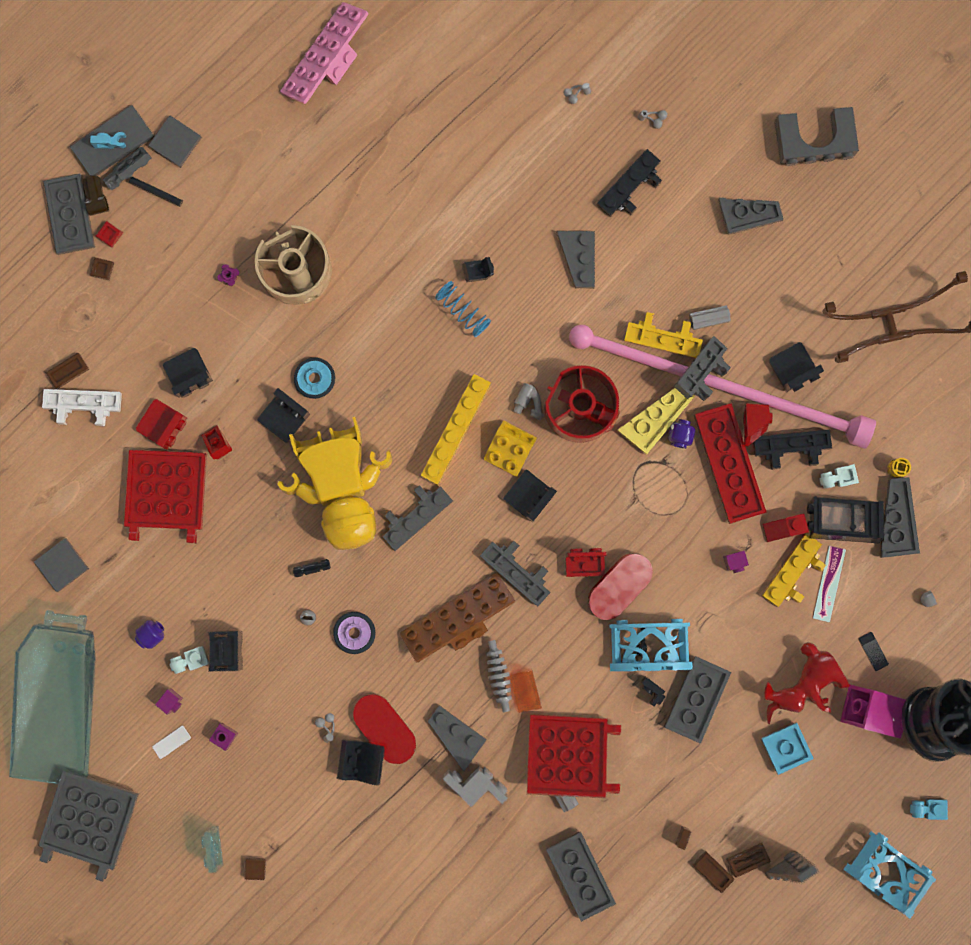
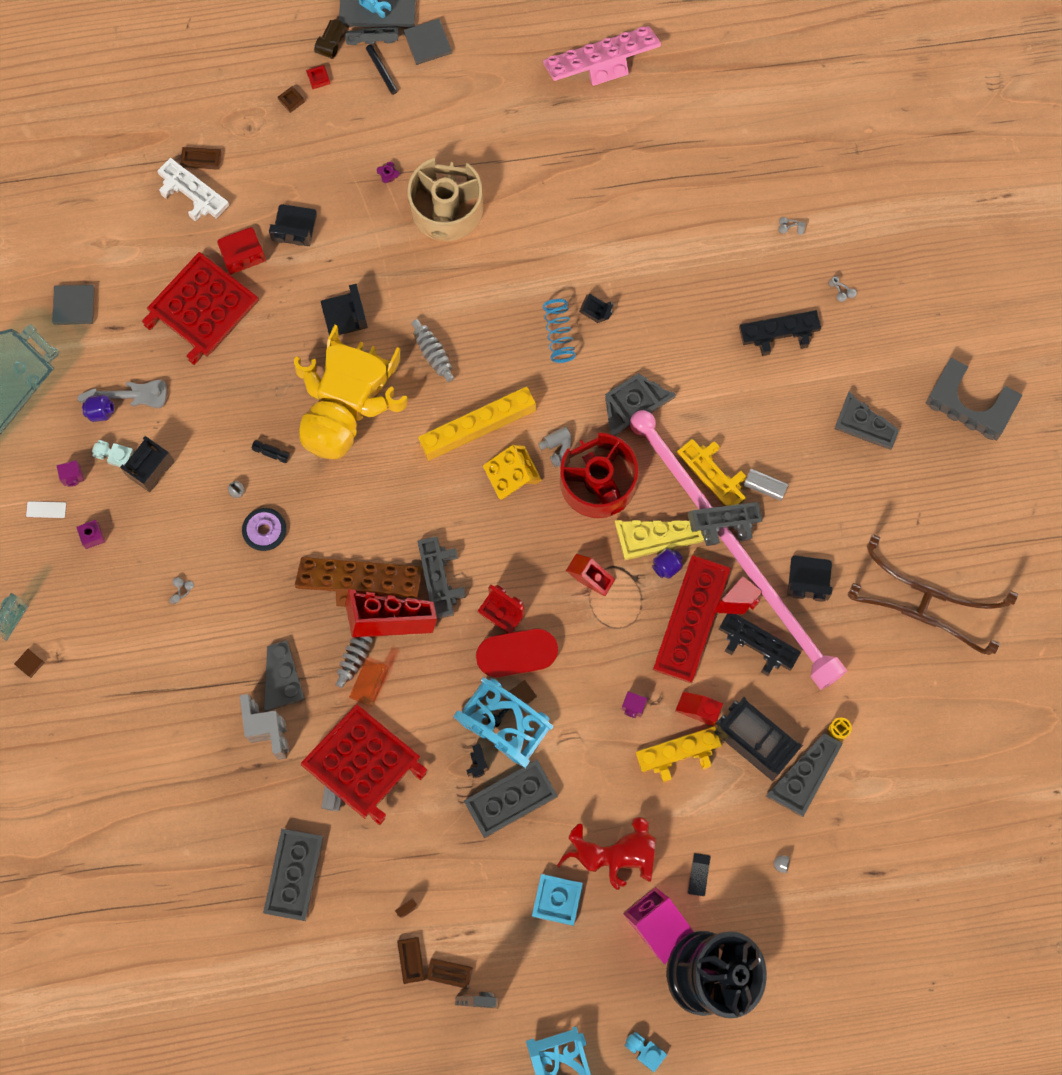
camera: 40 degrees right, 10 degrees down
(69, 214) = (297, 40): dark grey tile -> none
(181, 591) = (149, 394): none -> light grey piece
(216, 443) = (273, 297): red slope -> none
(318, 389) = (398, 312): medium azure wheel -> none
(360, 762) = (184, 635): black bracket -> none
(376, 396) = (432, 350): none -> light grey piece
(385, 727) = (226, 626): red tile -> none
(405, 528) = (374, 475): dark grey hinge -> none
(501, 635) = (387, 615): none -> red wedge
(529, 495) = (498, 522): black bracket -> none
(557, 323) = (631, 397): none -> dark grey wing
(580, 256) = (692, 358): dark grey wing -> none
(629, 485) = (590, 574): none -> red slope
(646, 613) = (523, 692): none -> reddish brown tile
(829, 584) = (703, 786): sticker -> none
(844, 476) = (785, 702): light aqua plate -> none

